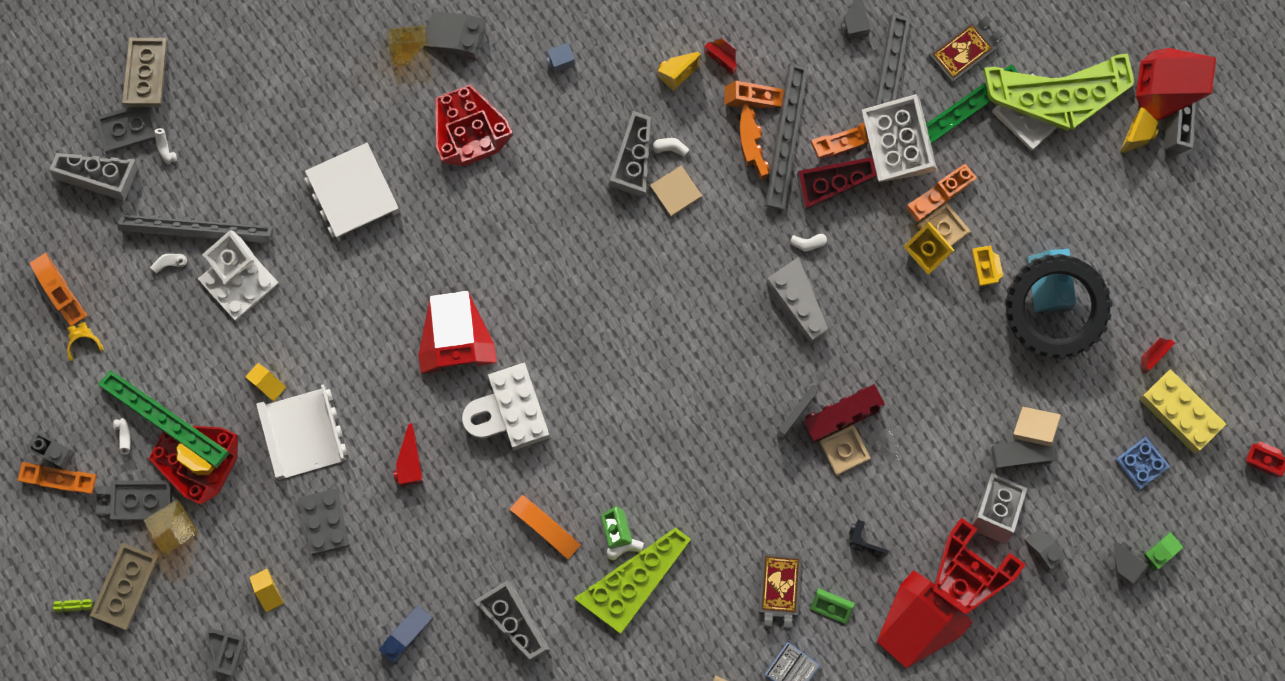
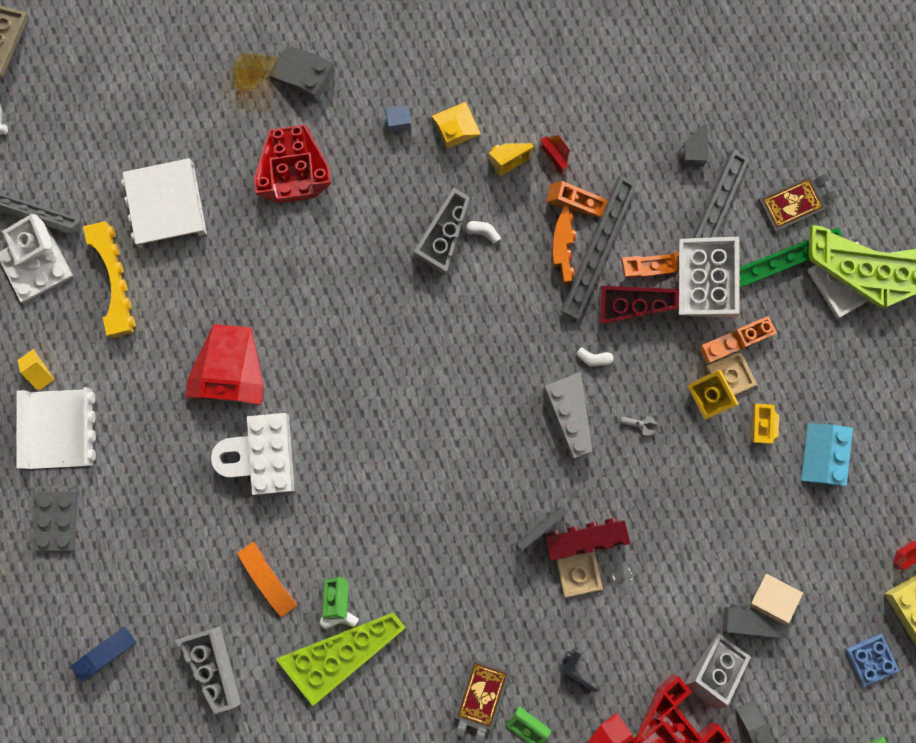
camera: 15 degrees right, 5 degrees up
(298, 240) = (118, 319): none -> yellow arch
(408, 463) = (149, 486): red slope -> none
(618, 51) = (456, 125): none -> yellow slope
(676, 191) = (477, 276): tan tile -> none
(868, 295) = (639, 424): none -> light grey bar
(1071, 345) = (848, 521): black tyre -> none

